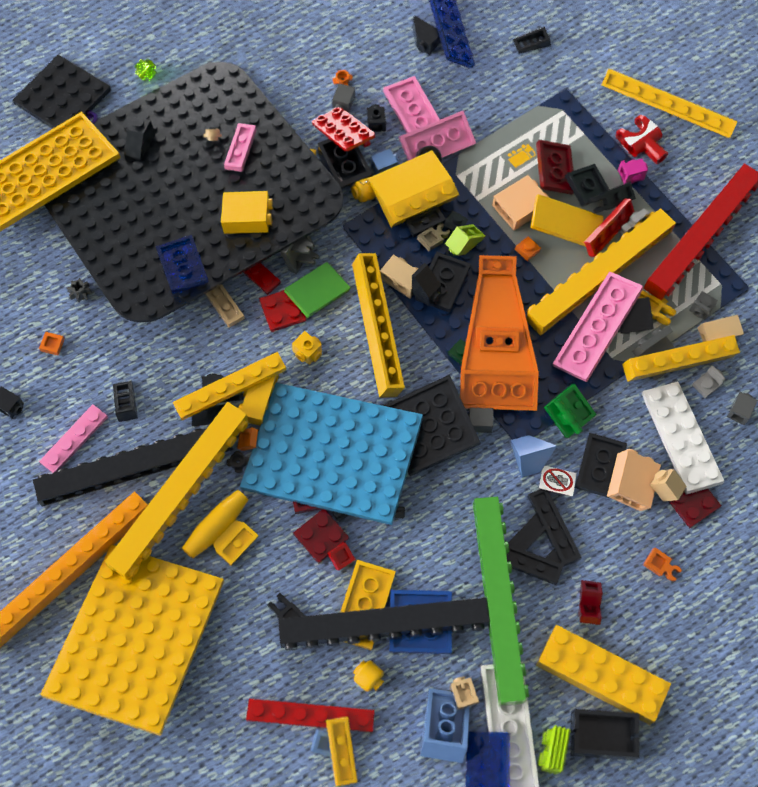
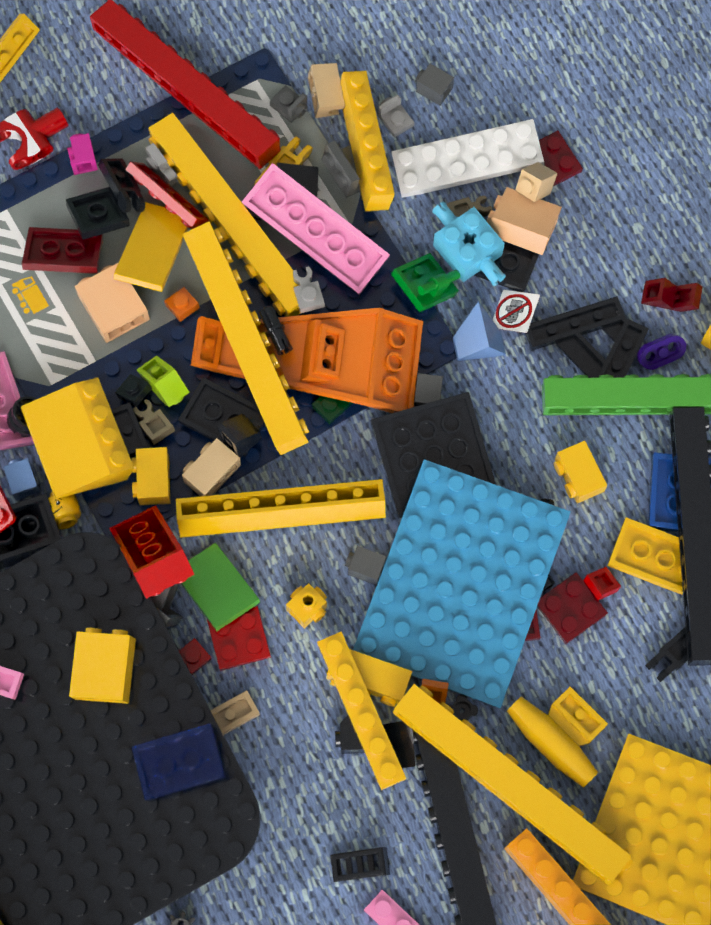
camera: 85 degrees left, 5 degrees up
(332, 237) = (152, 552): none -> red brick
(341, 384) = (365, 565): none -> dark grey brick
(393, 239) = (152, 476): none -> yellow brick
(429, 535) = (580, 472): none -> yellow brick
(501, 284) = (245, 338): none -> yellow brick
(510, 303) = (275, 330): none -> black axle
(539, 595) = (660, 353): none -> dark purple plate
(542, 323) = (308, 293): none -> light grey plate
(616, 436) = (468, 244): none -> medium azure brick
(636, 439) = (463, 205): none -> dark tan plate
(660, 564) = (628, 209): orange plate -> none

